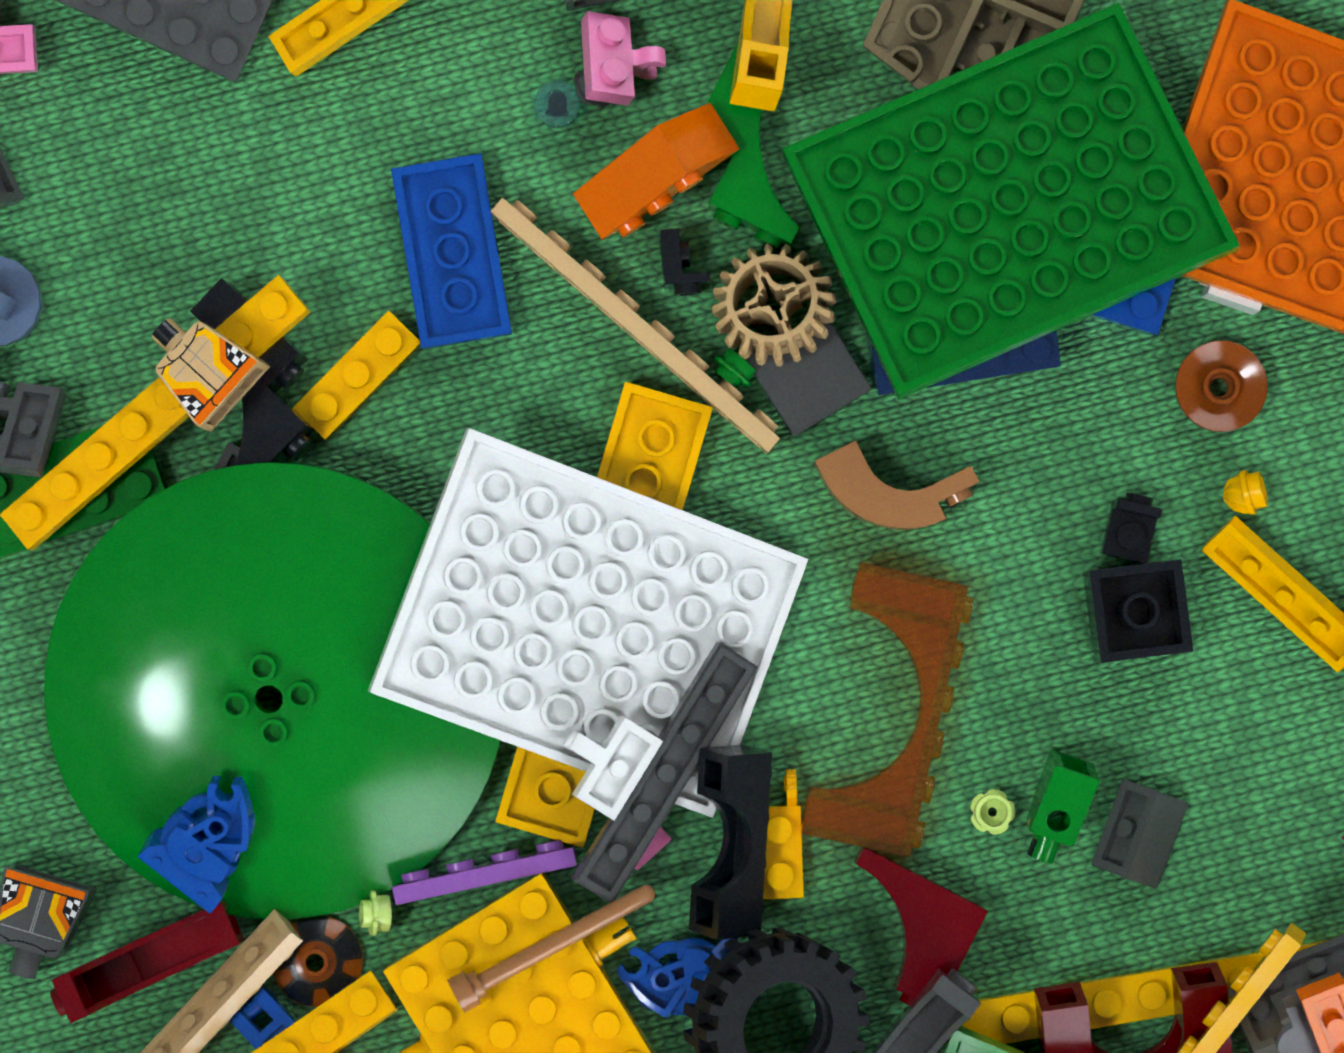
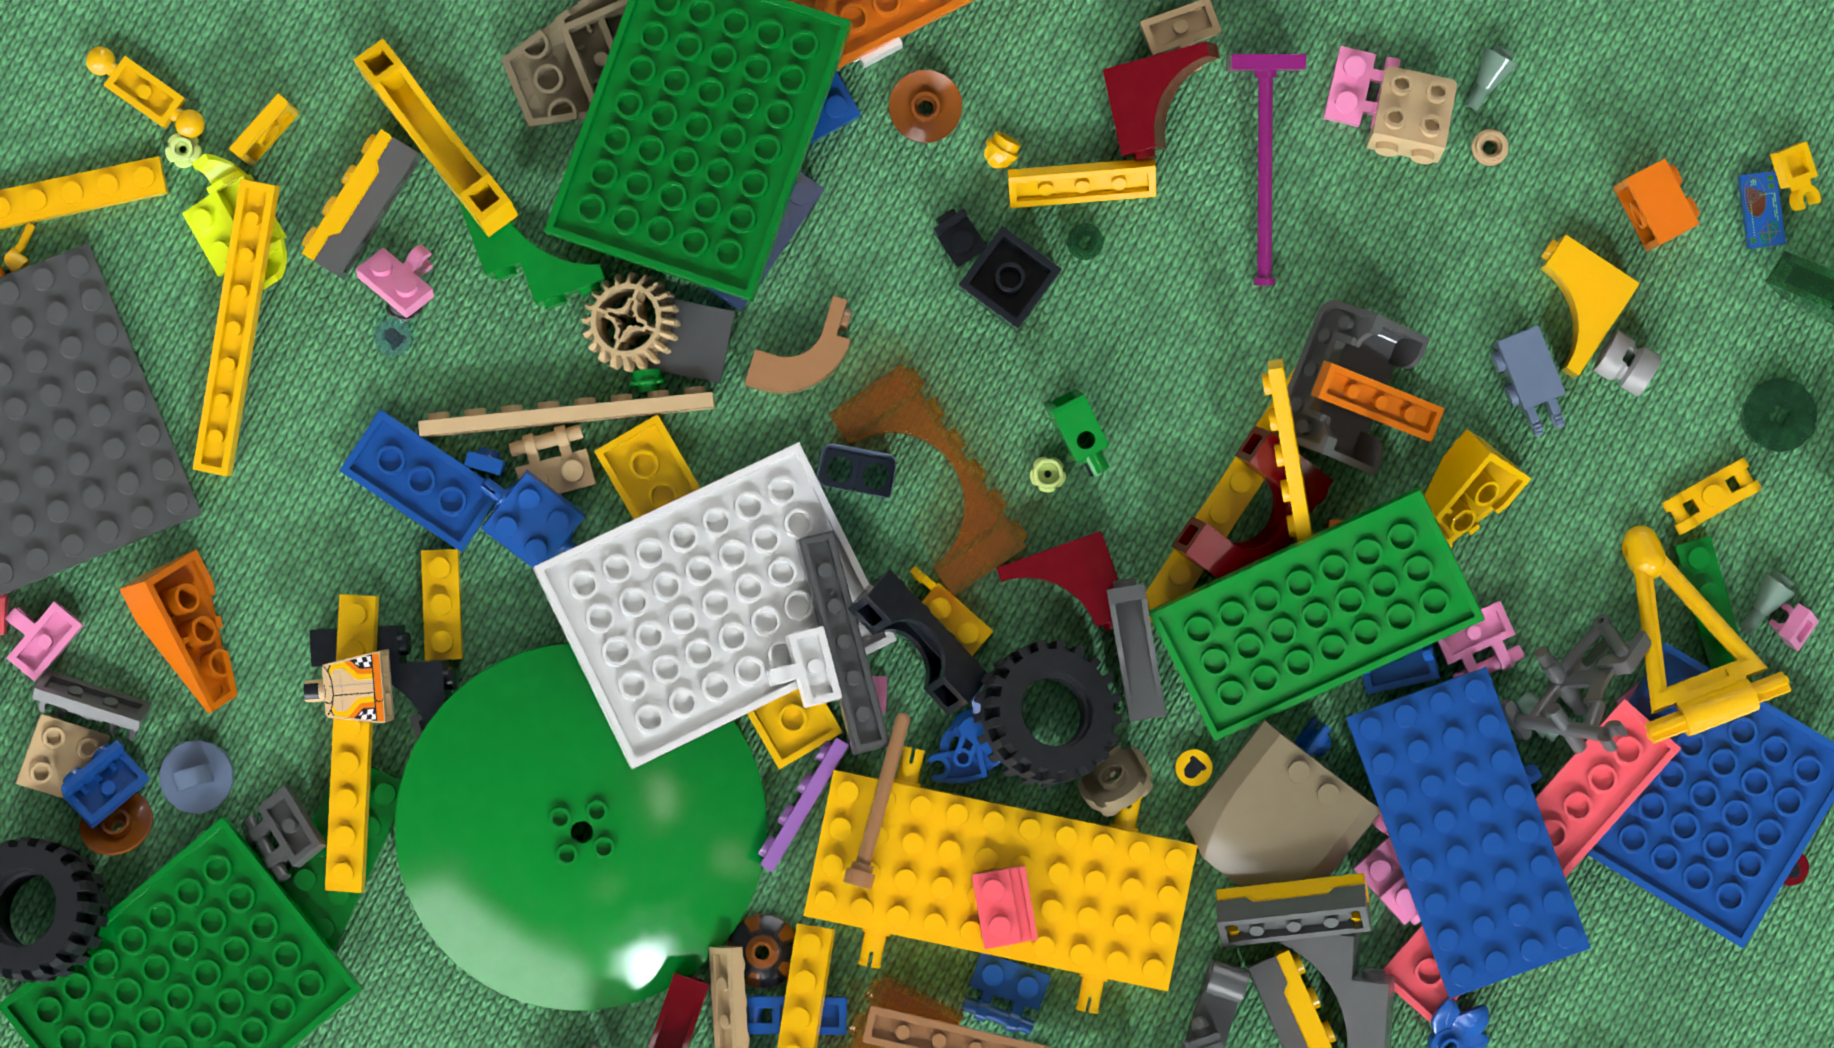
camera: 45 degrees left, 0 degrees up
(122, 152) = (180, 619): none -> orange wedge
(203, 846) = (631, 951): blue piece -> none
(375, 913) = (767, 890): yellowish green plate -> none
(510, 383) = (531, 519): none -> blue plate
(524, 292) = (486, 461): none -> blue plate
(571, 367) = (561, 473): none -> tan plate
(654, 170) = (486, 317): orange wedge -> none
(674, 257) = (549, 352): black bracket -> none
(837, 633) = (856, 480): none -> sand blue piece
(1139, 833) = (1141, 399): dark grey panel -> none
(1249, 646) = (1085, 230): none -> clear green plate

